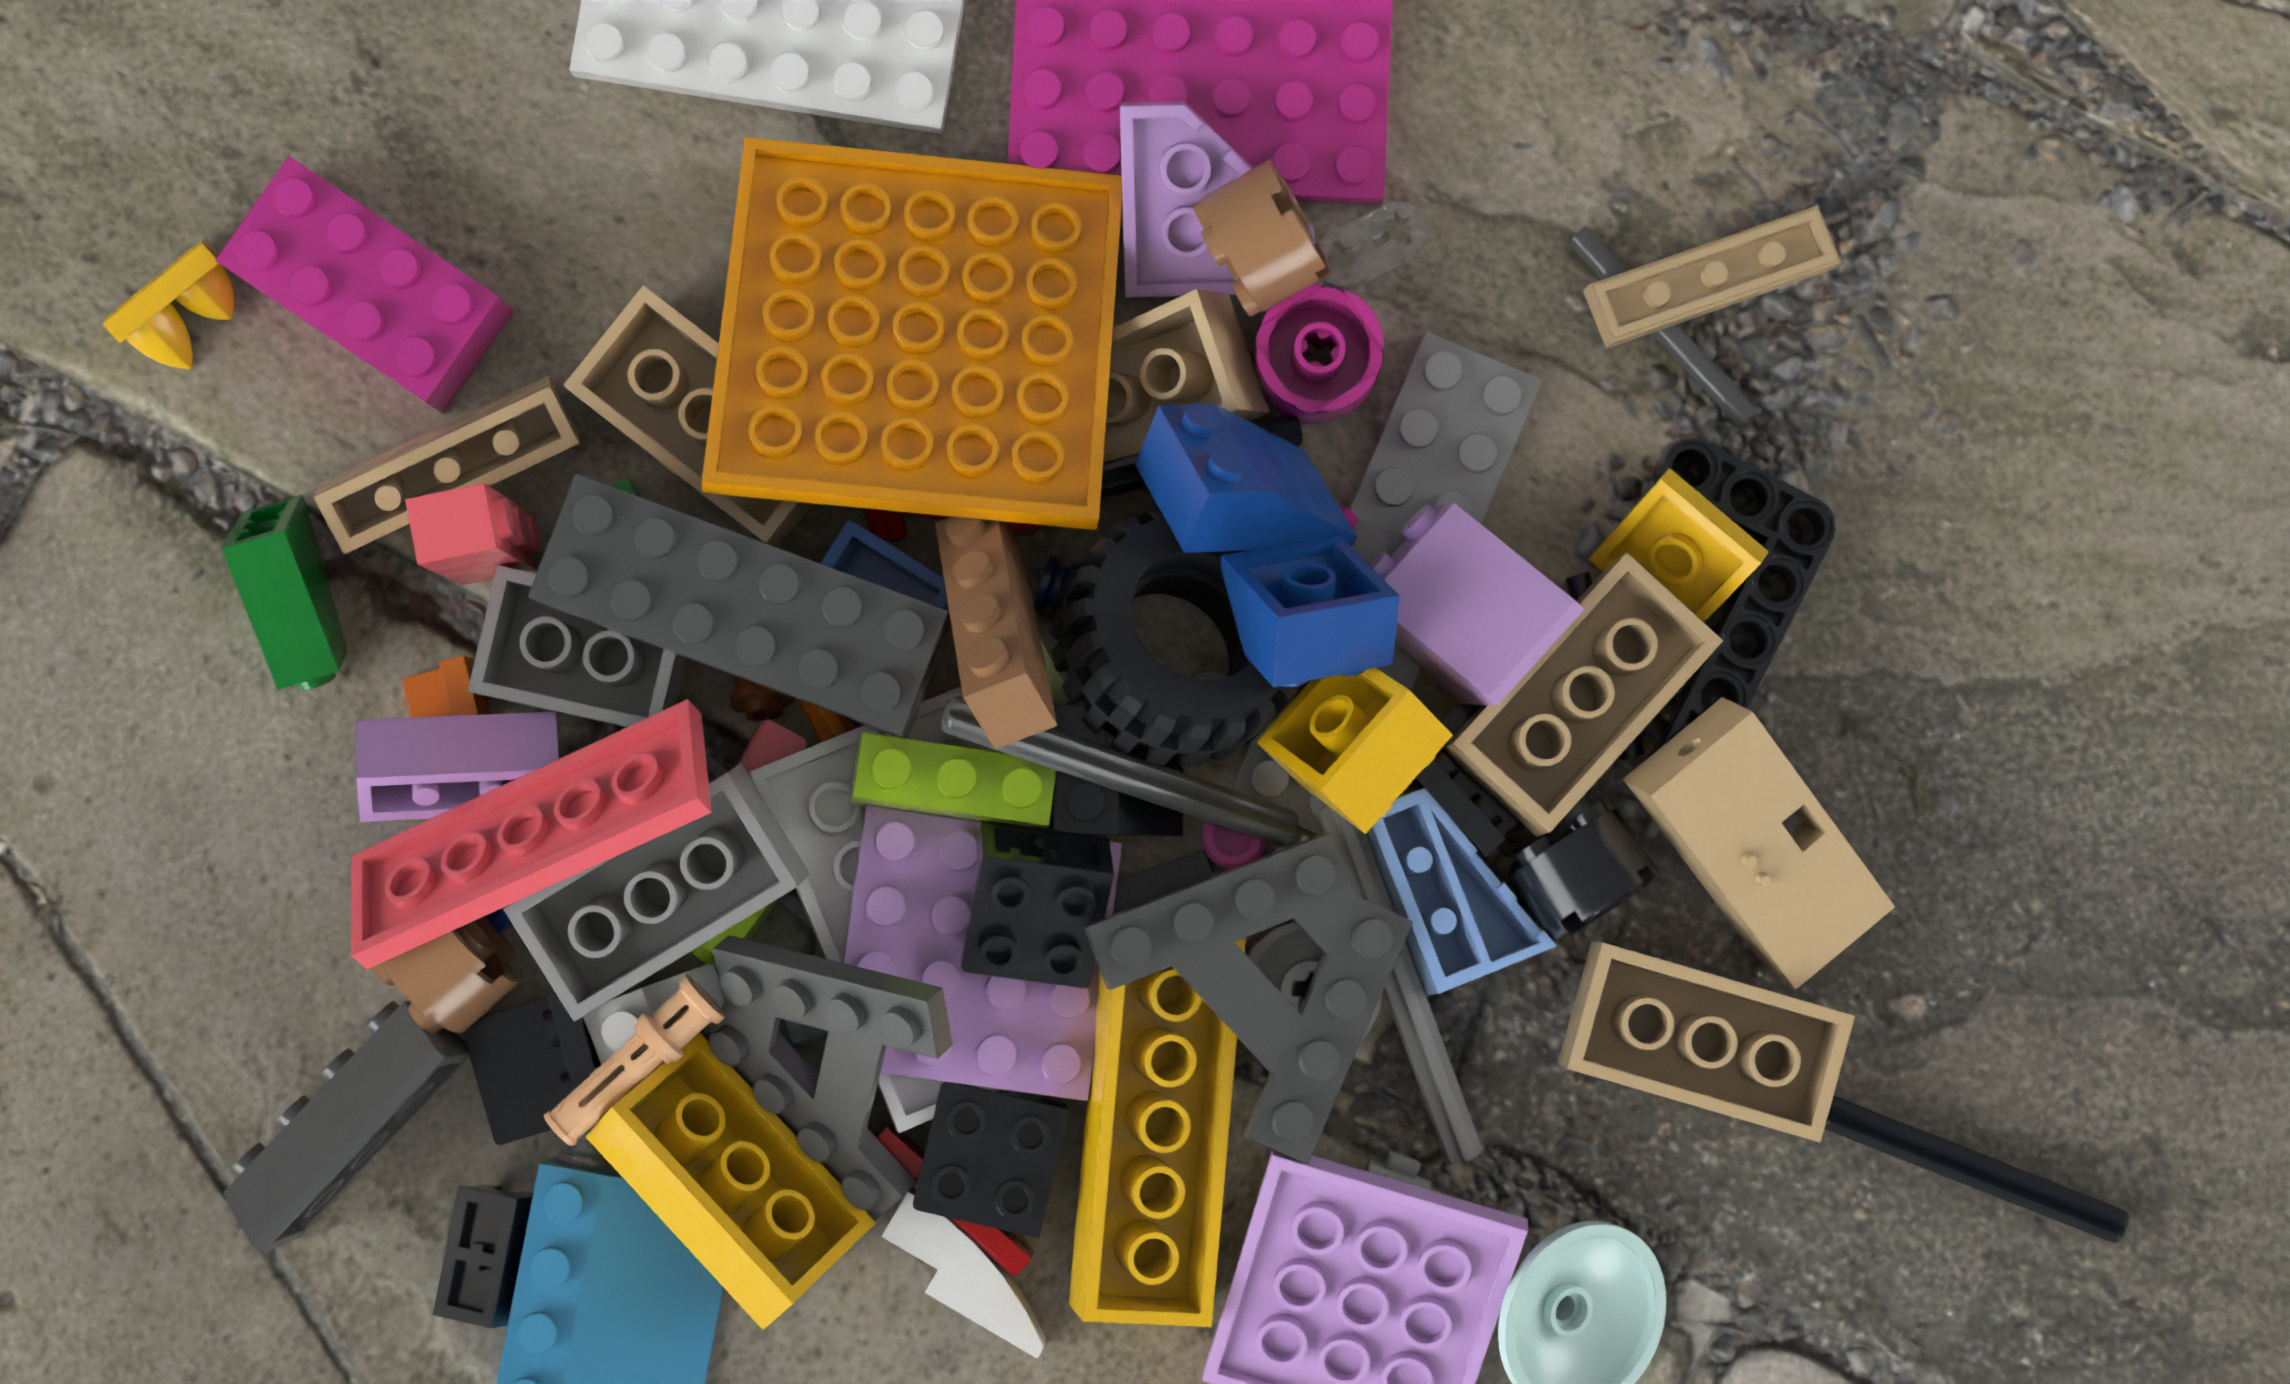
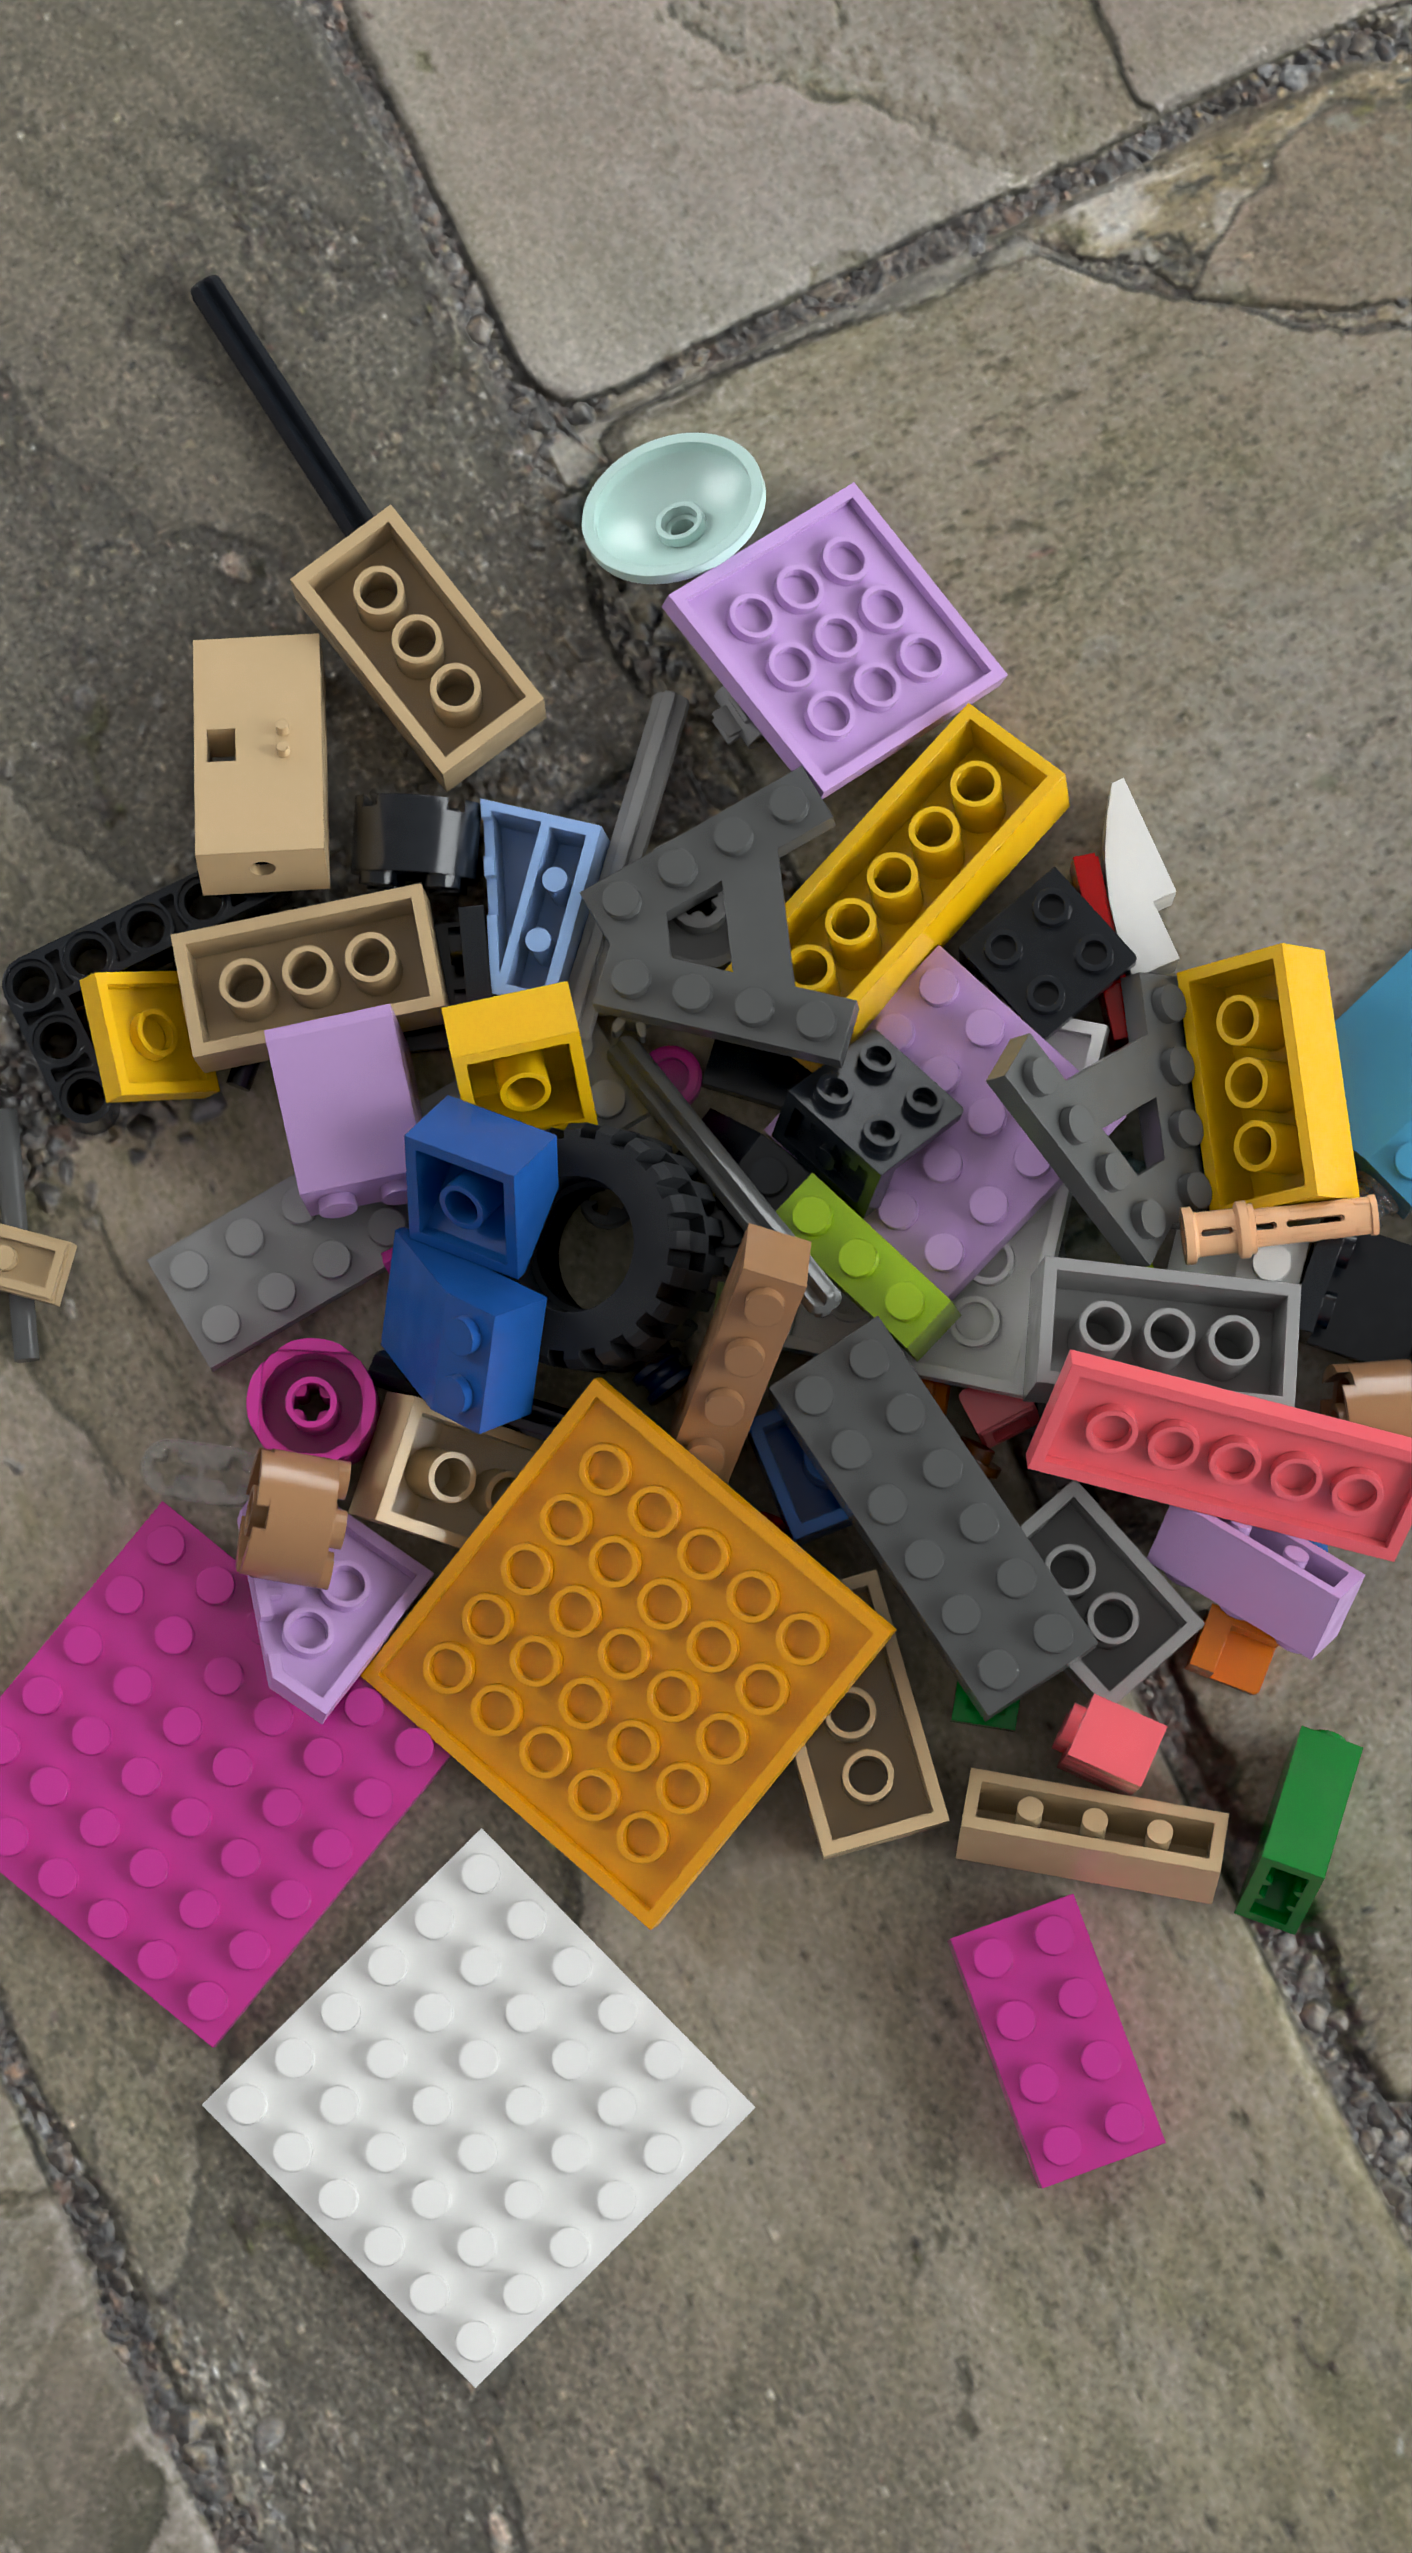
camera: 145 degrees left, 5 degrees down
(152, 321) = (1253, 2159): yellow tile -> none

